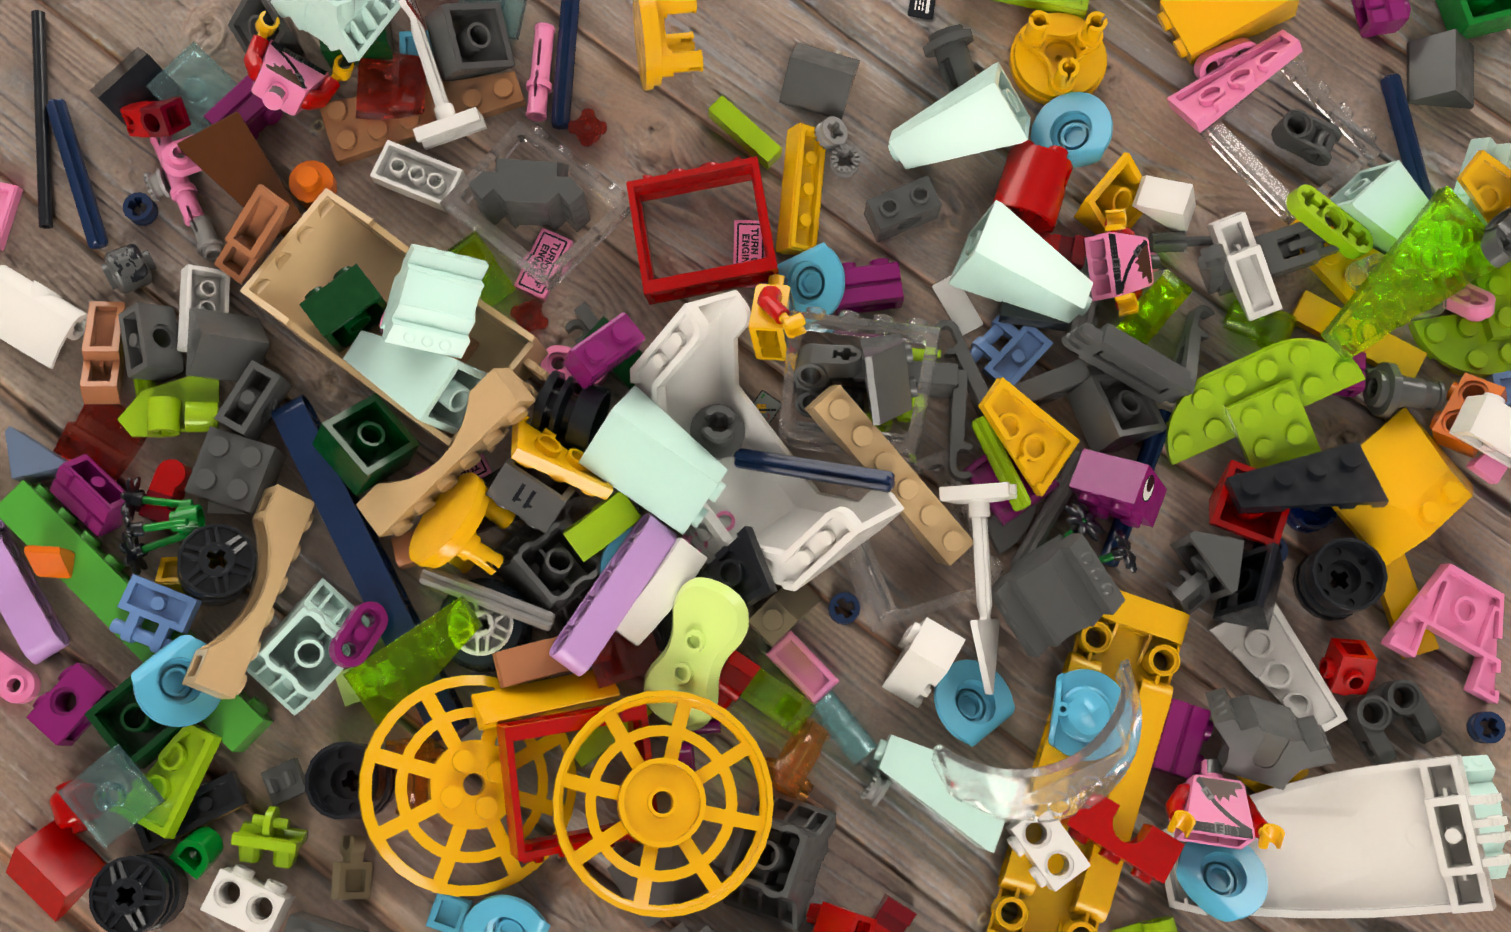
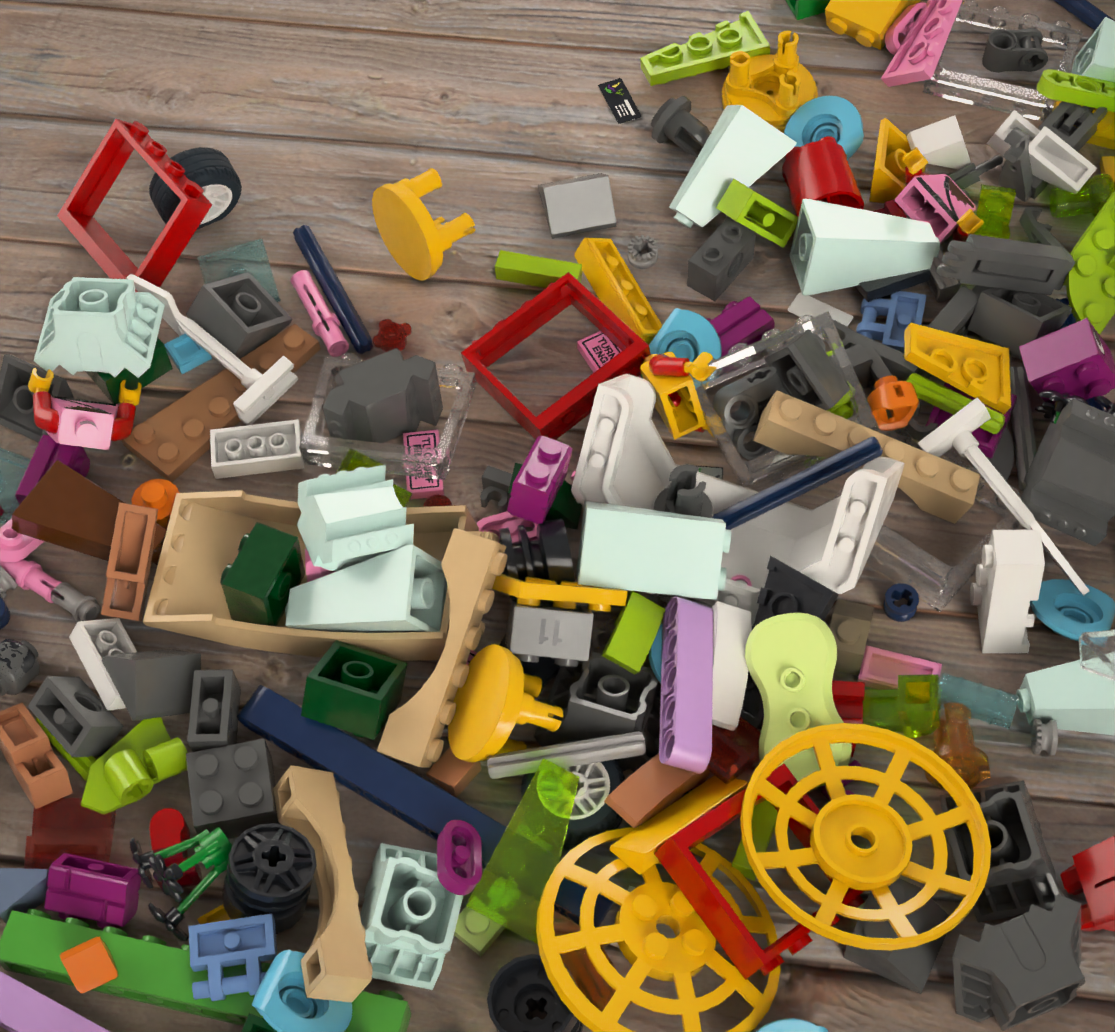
camera: 25 degrees left, 20 degrees down
(390, 88) = (187, 389): clear red slope -> none
(824, 134) = (616, 234): light grey bush -> none
(942, 439) = (893, 396): none -> orange piece
(956, 186) = (758, 213): none -> lime brick

